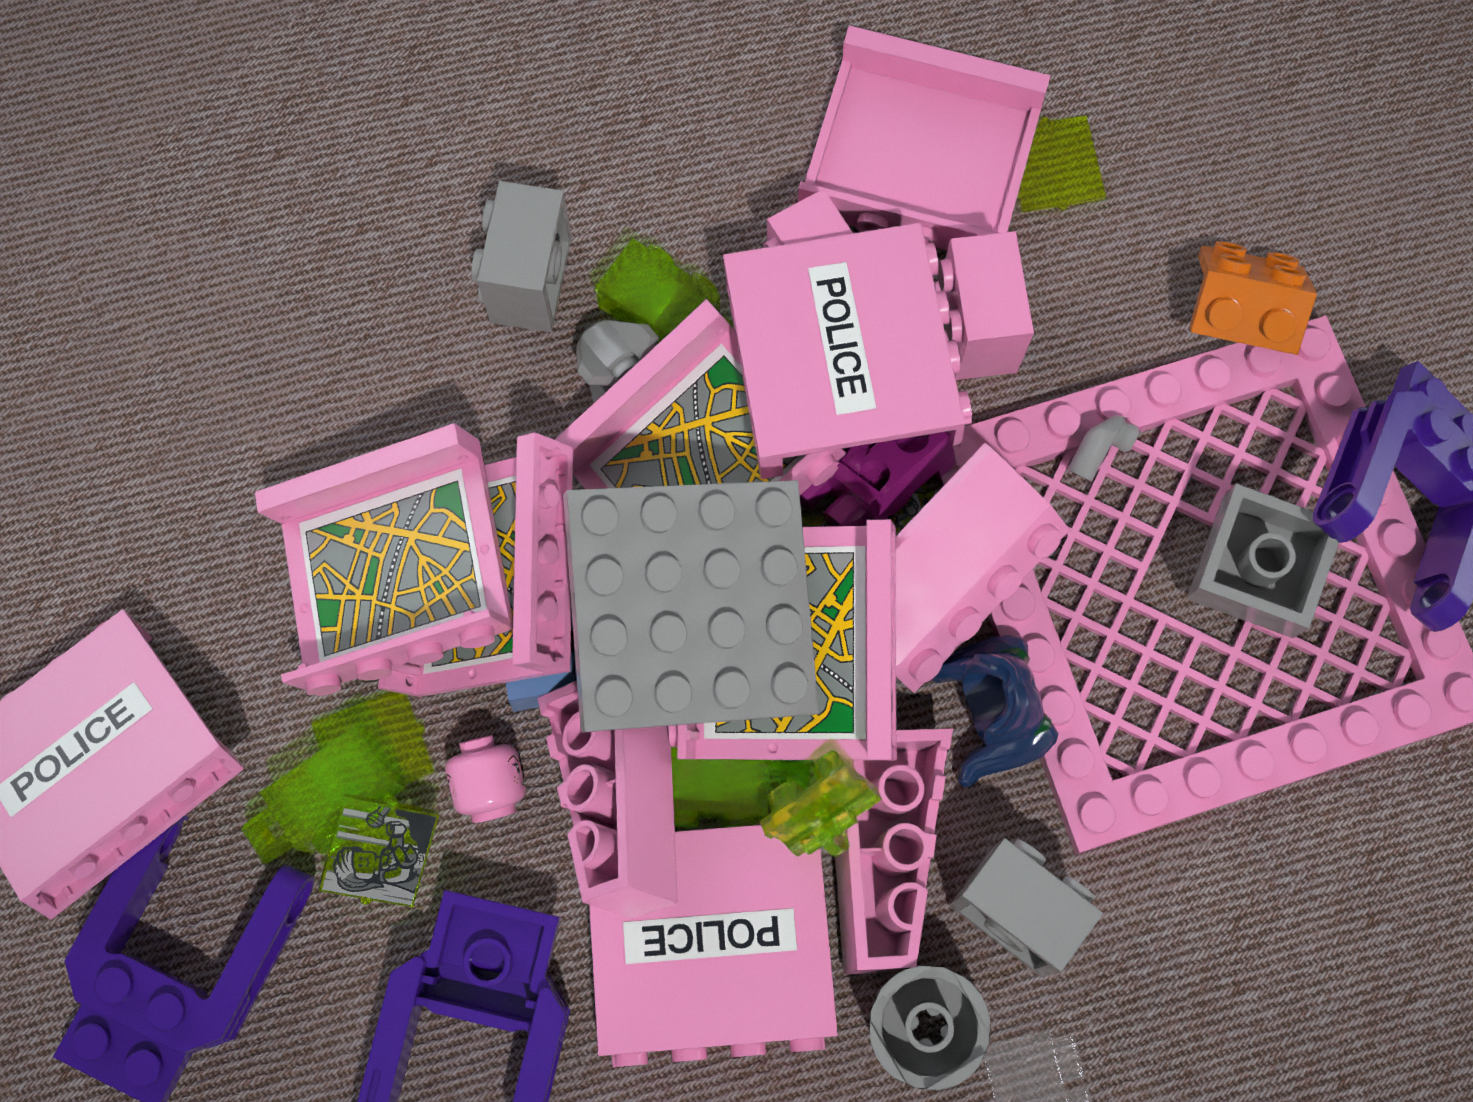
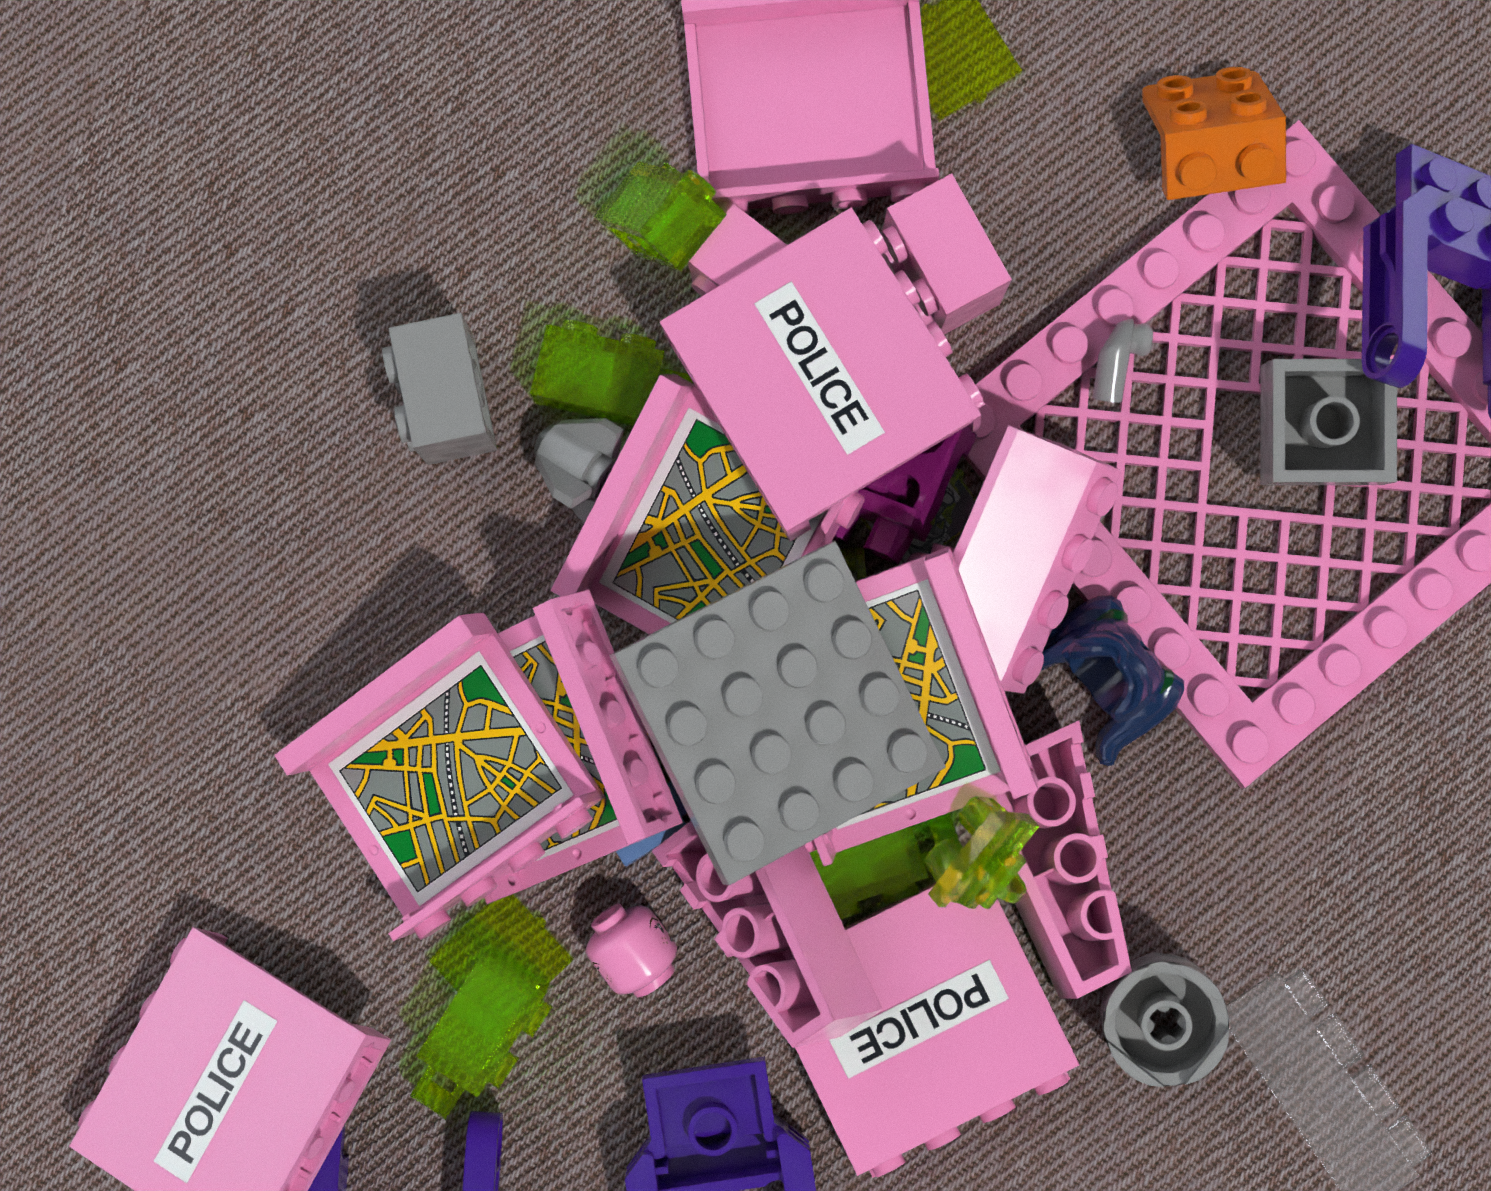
camera: 20 degrees left, 10 degrees up
(378, 850) = (557, 1063): piece -> none
(762, 181) = (662, 213): none -> clear neon green brick
(1027, 907) = (1215, 870): light grey brick -> none

